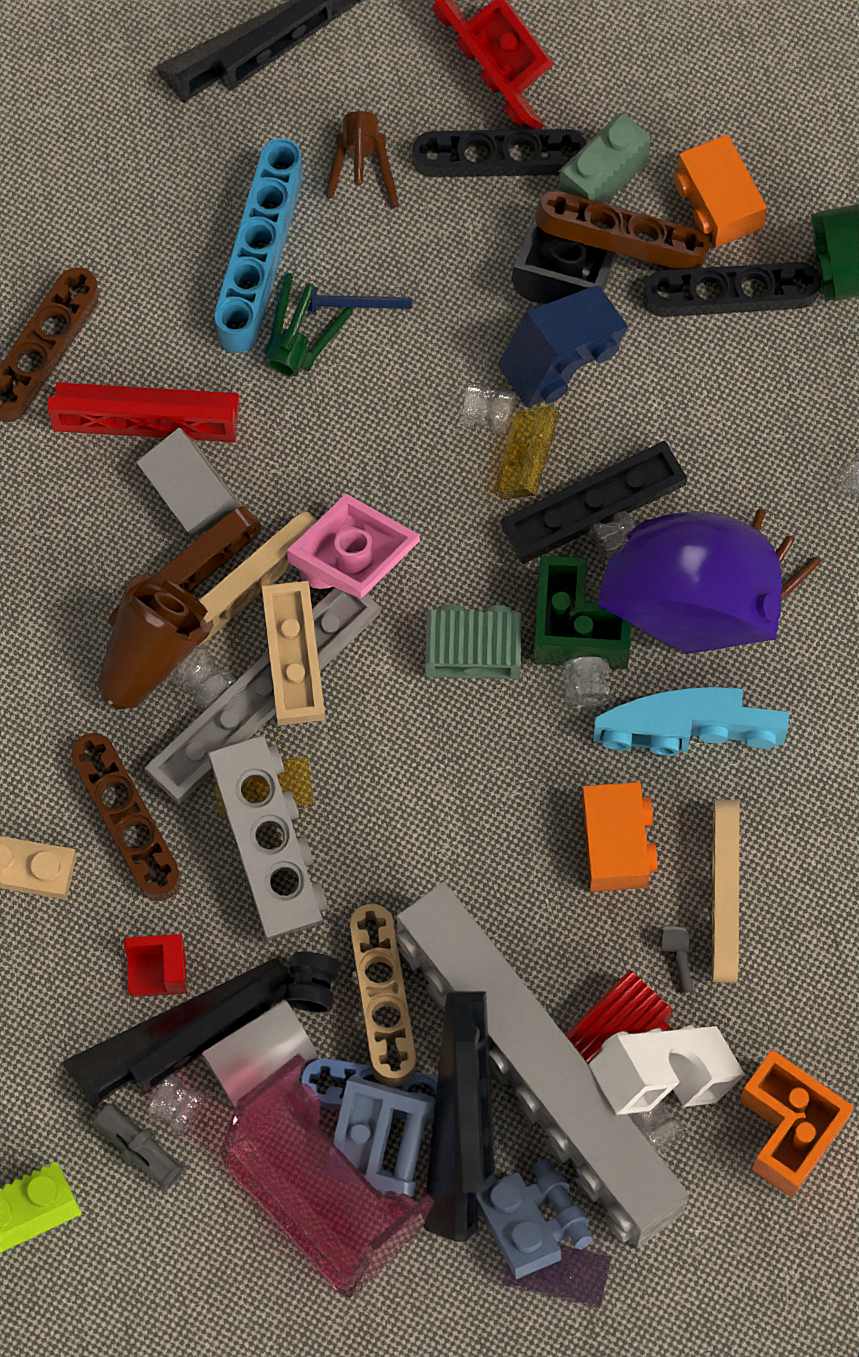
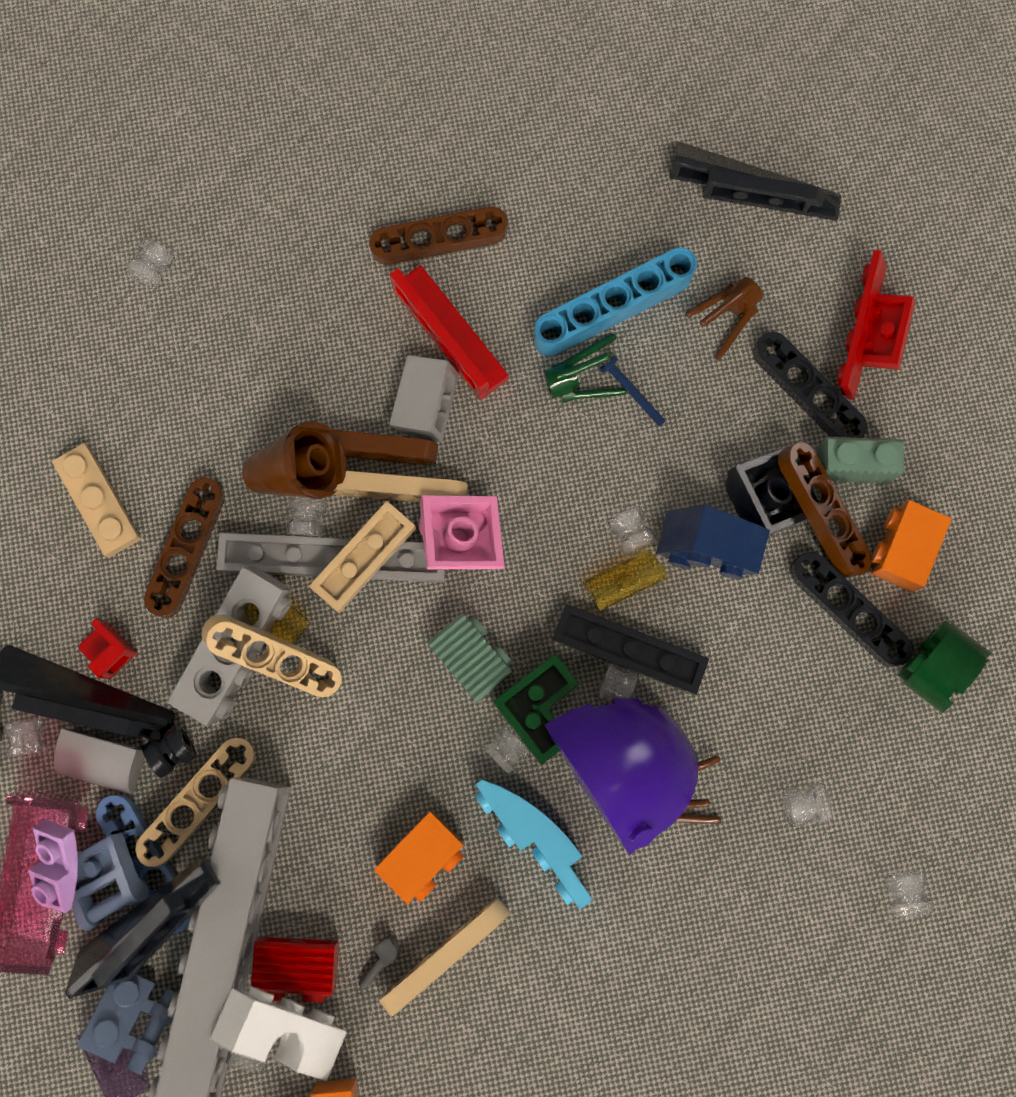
camera: 45 degrees right, 10 degrees up
(315, 802) = (274, 654): none -> tan beam
(331, 1153) = (56, 873): none -> lavender slope

